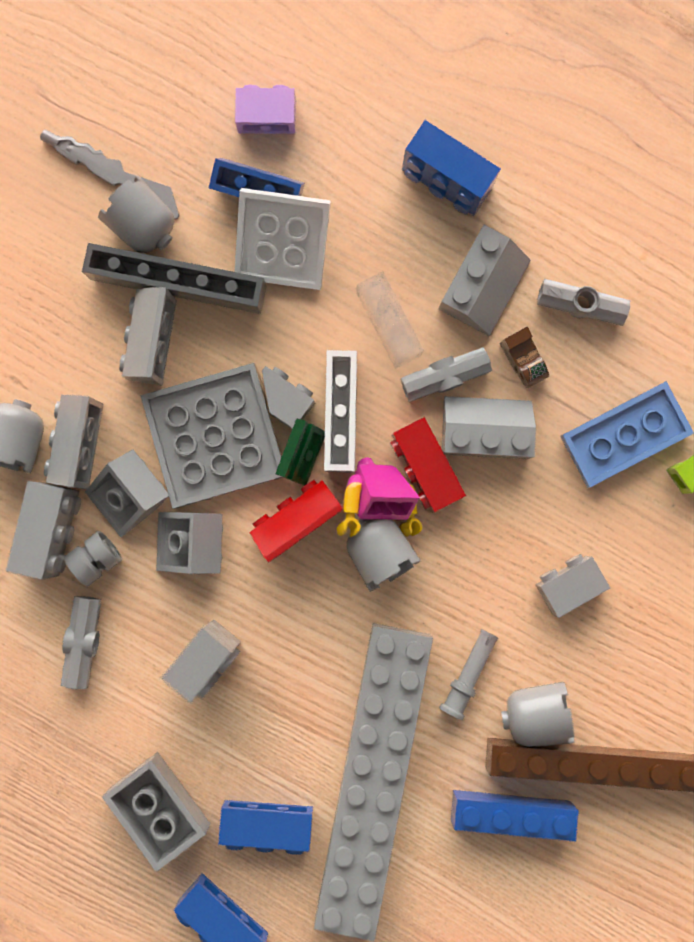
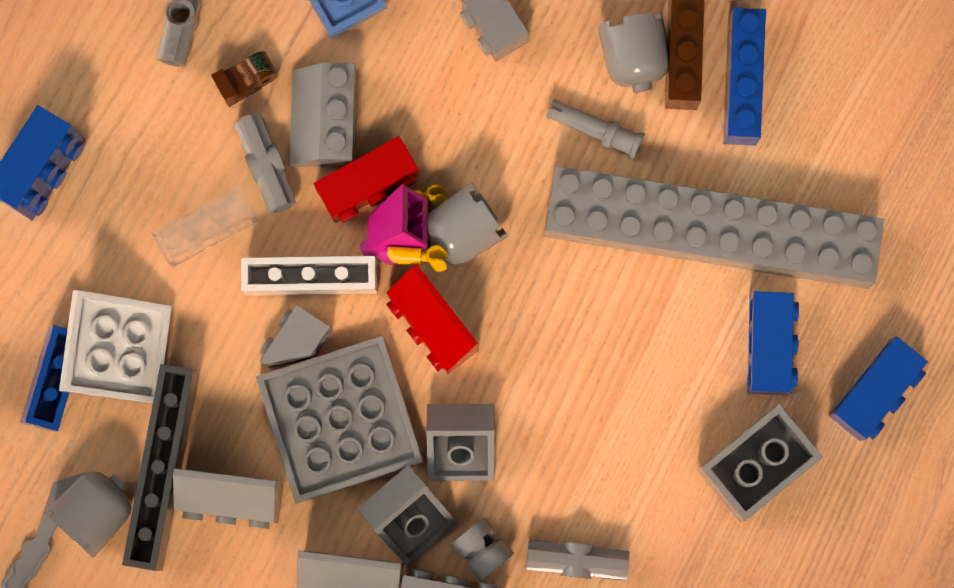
camera: 90 degrees left, 5 degrees down
(202, 661) = (589, 412): light grey brick -> none
(301, 452) = (355, 318): dark green plate -> none
(485, 281) = (159, 124): light grey slope -> none

